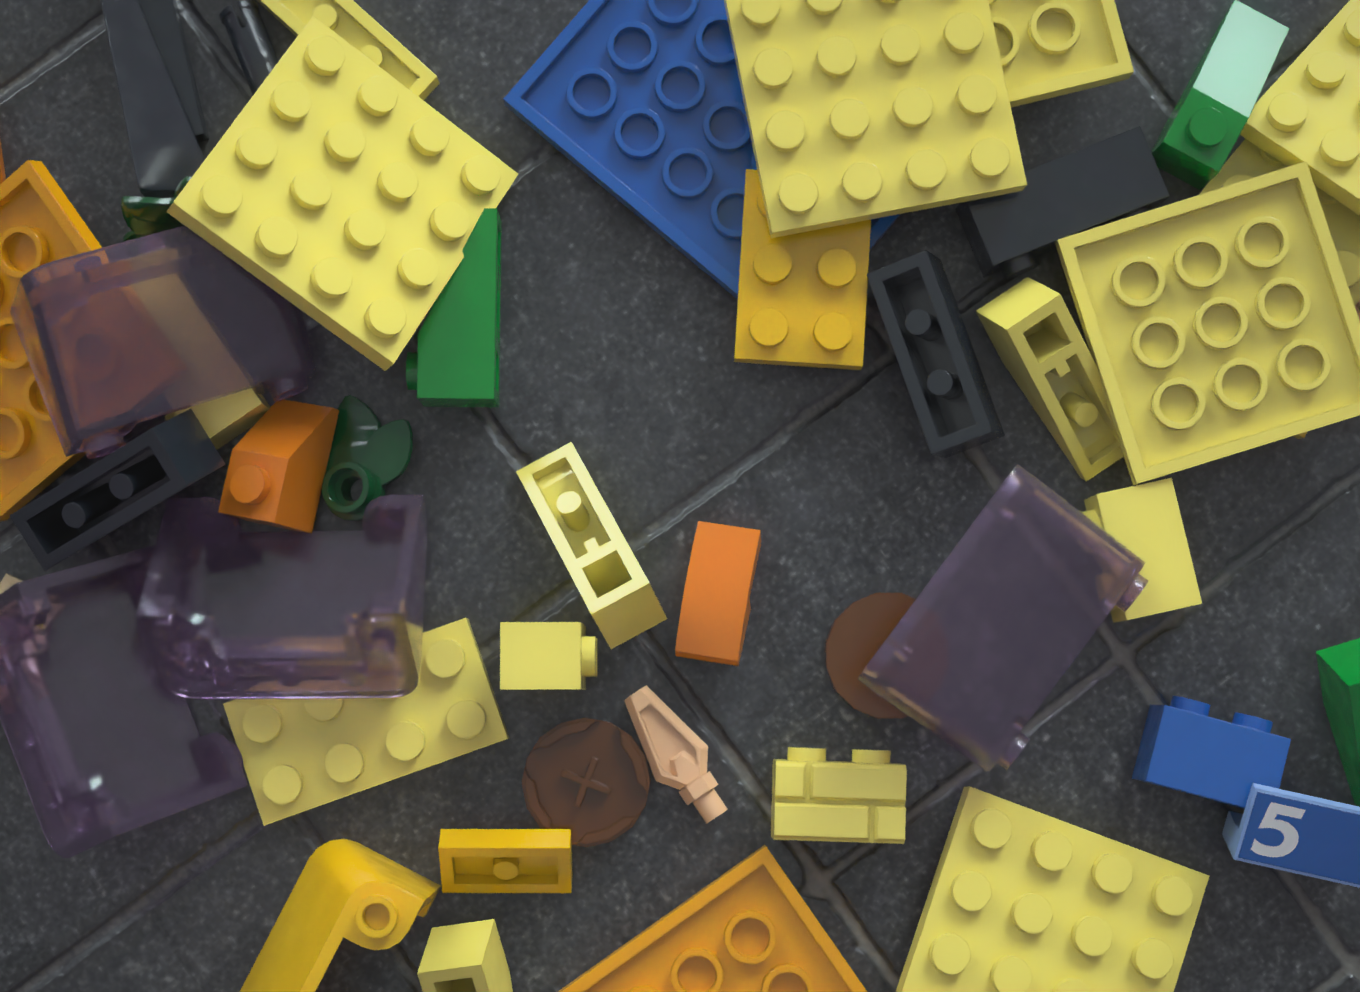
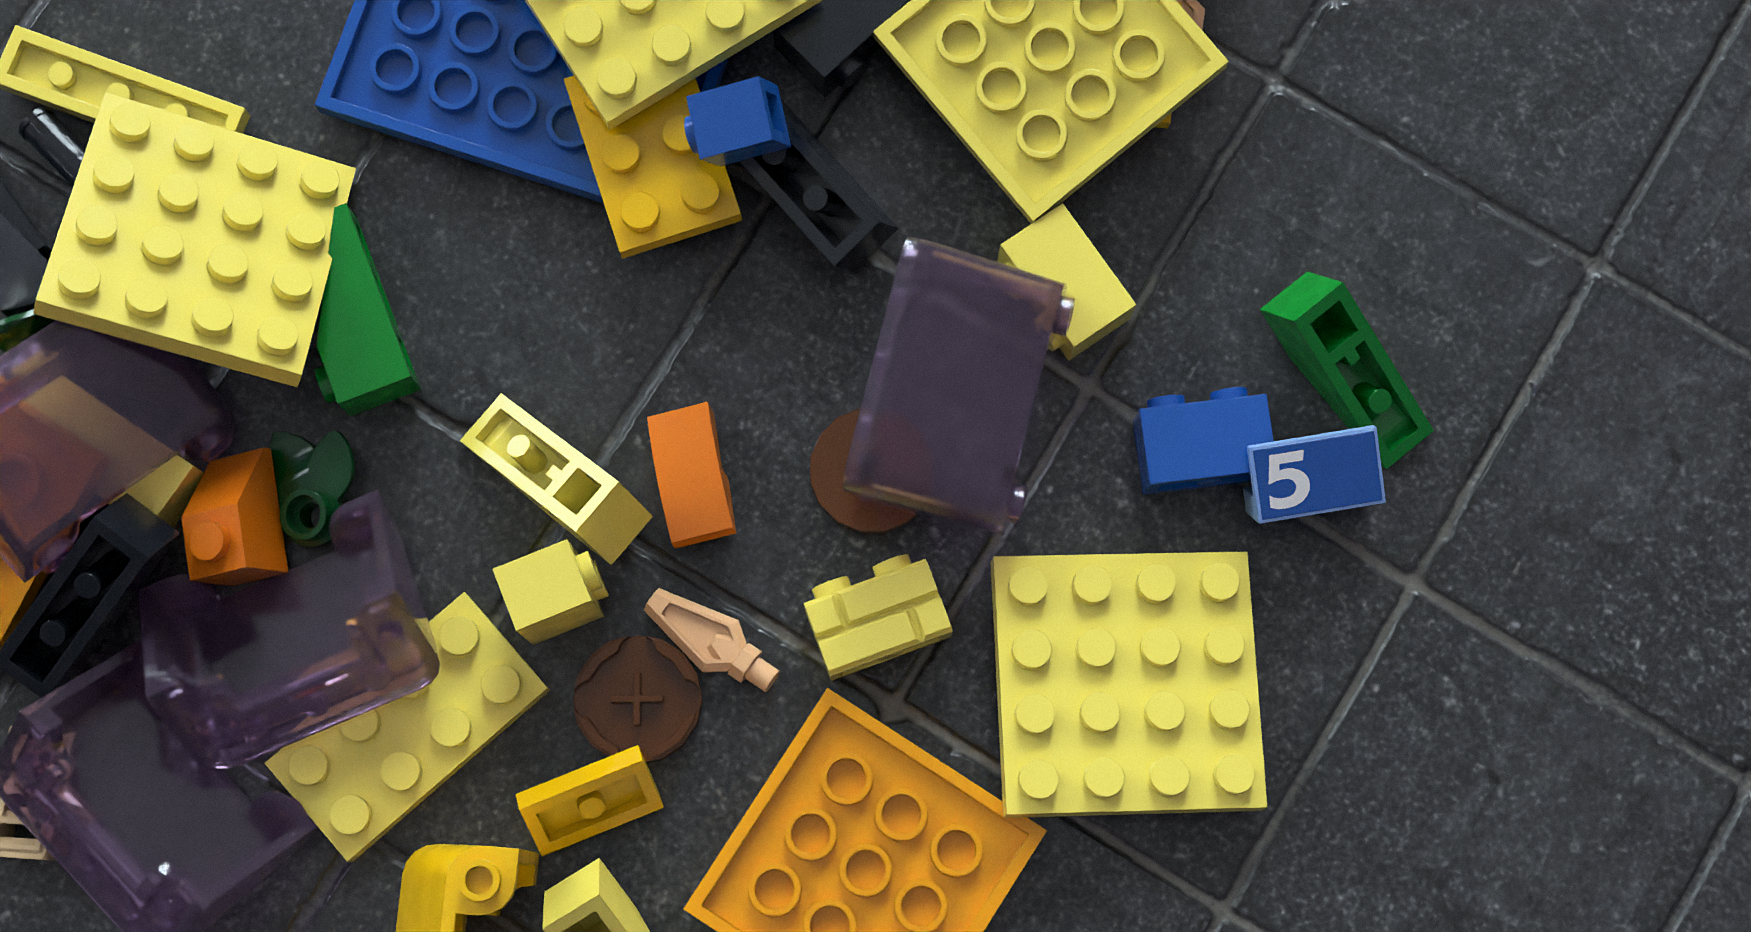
camera: 20 degrees left, 5 degrees down
(894, 282) = (736, 122): none -> blue brick
(1054, 372) = (921, 154): light yellow slope -> none

